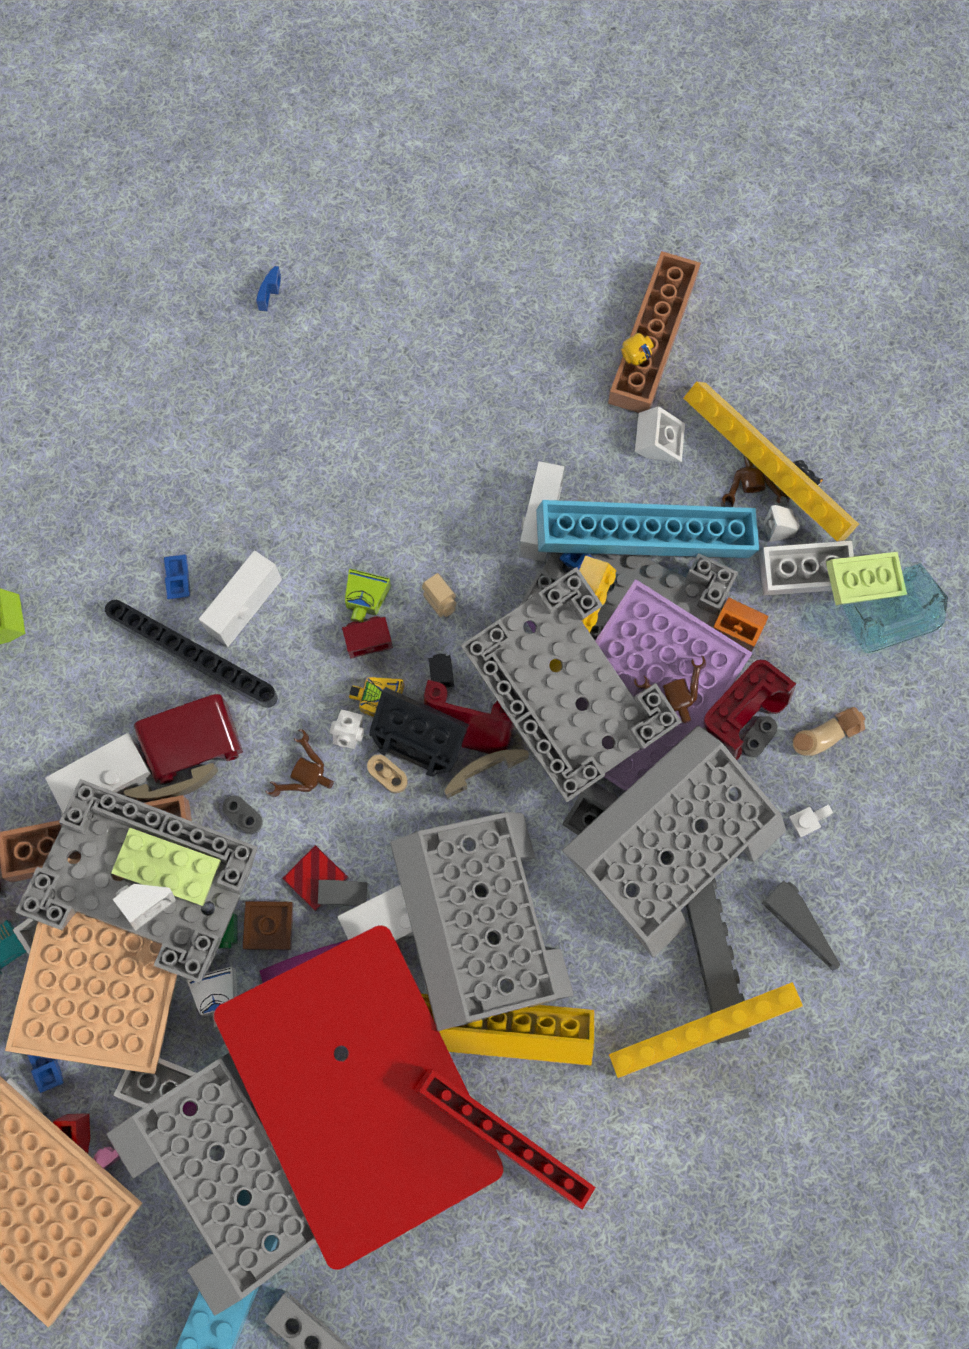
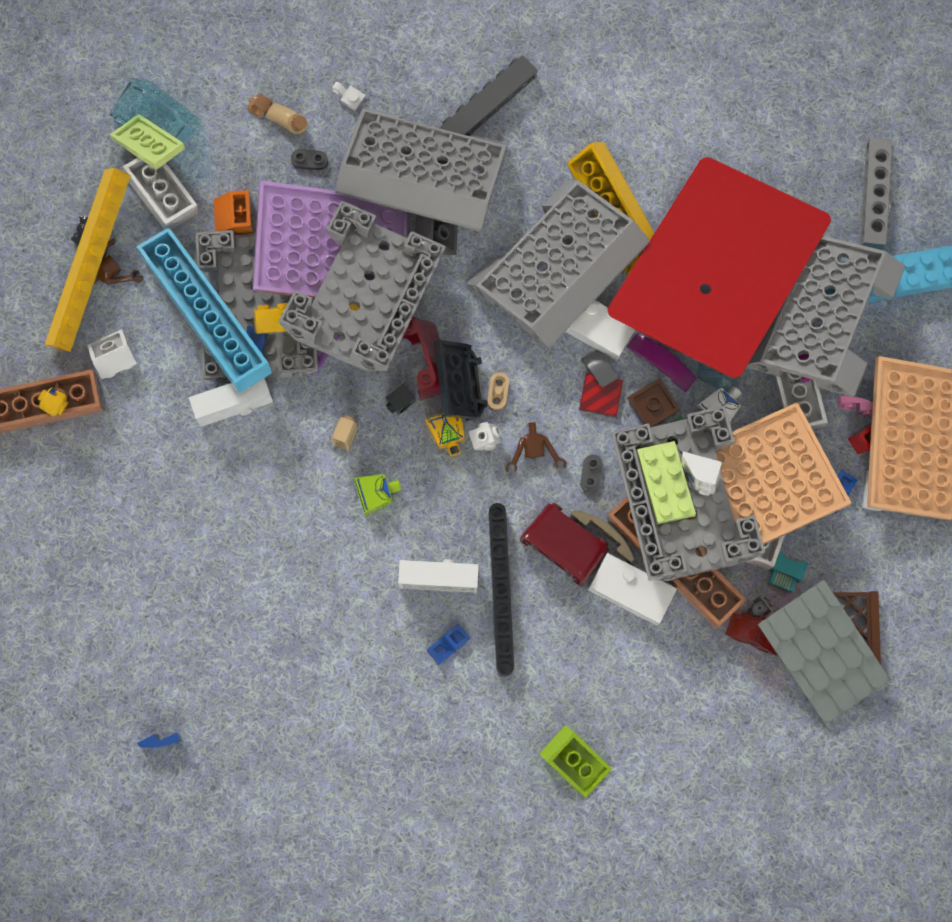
camera: 130 degrees left, 5 degrees up
(367, 637) = (407, 467): dark red brick -> none
(505, 1138) = (686, 164): red brick -> none
(510, 757) = (472, 338): dark tan slope -> none
(678, 693) = (320, 215): reddish brown piece -> none
(706, 1030) = (537, 80): yellow brick -> none
(756, 688) = (275, 168): dark red windscreen -> none
(780, 523) = (135, 226): white slope -> none
(793, 912) = (422, 69): dark grey slope -> none

